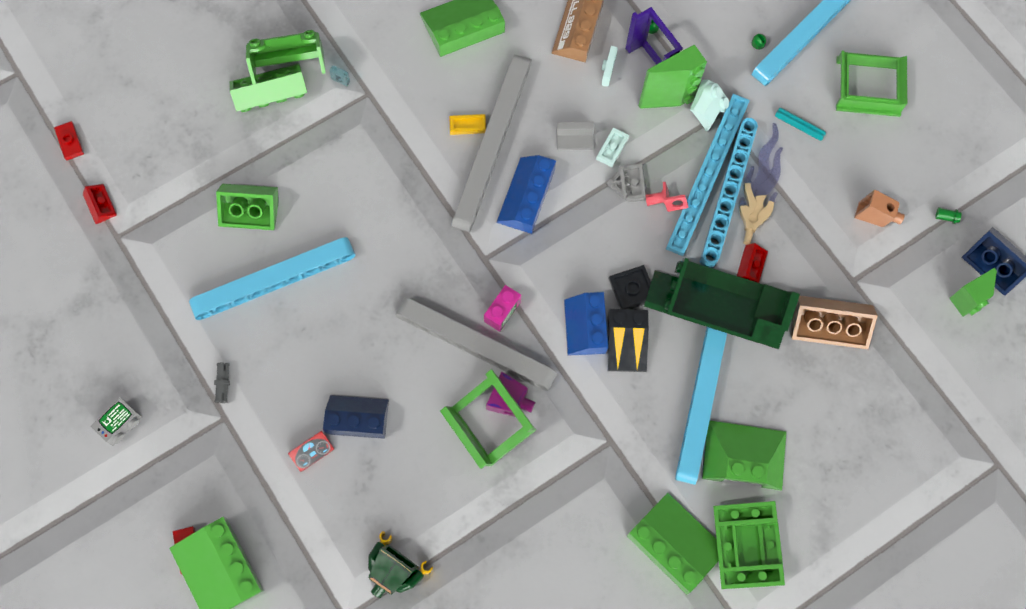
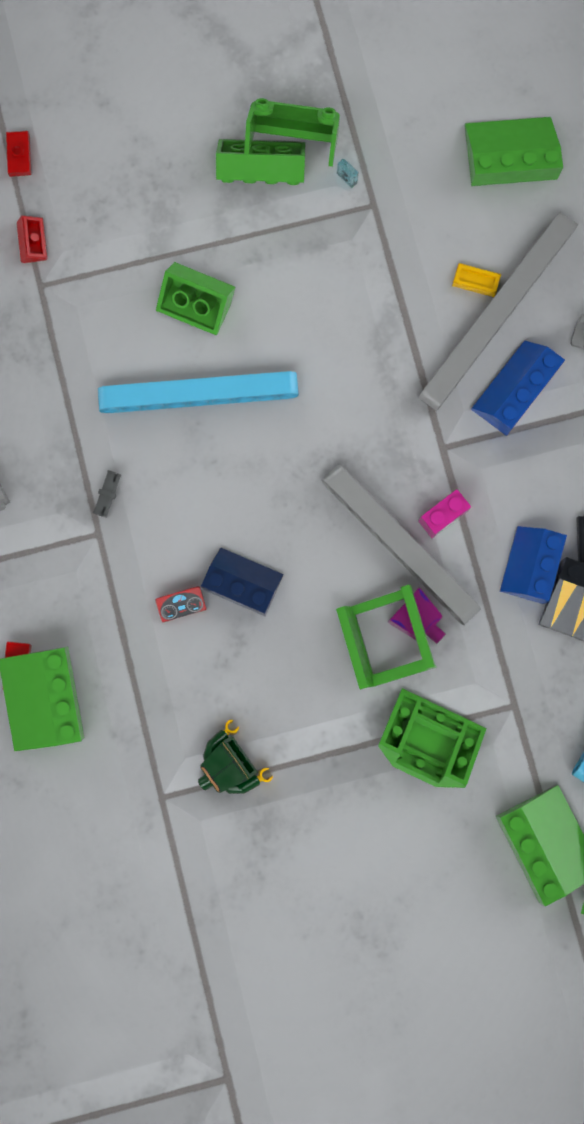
camera: 20 degrees right, 10 degrees up
(552, 492) = (431, 742): none -> bright green slope

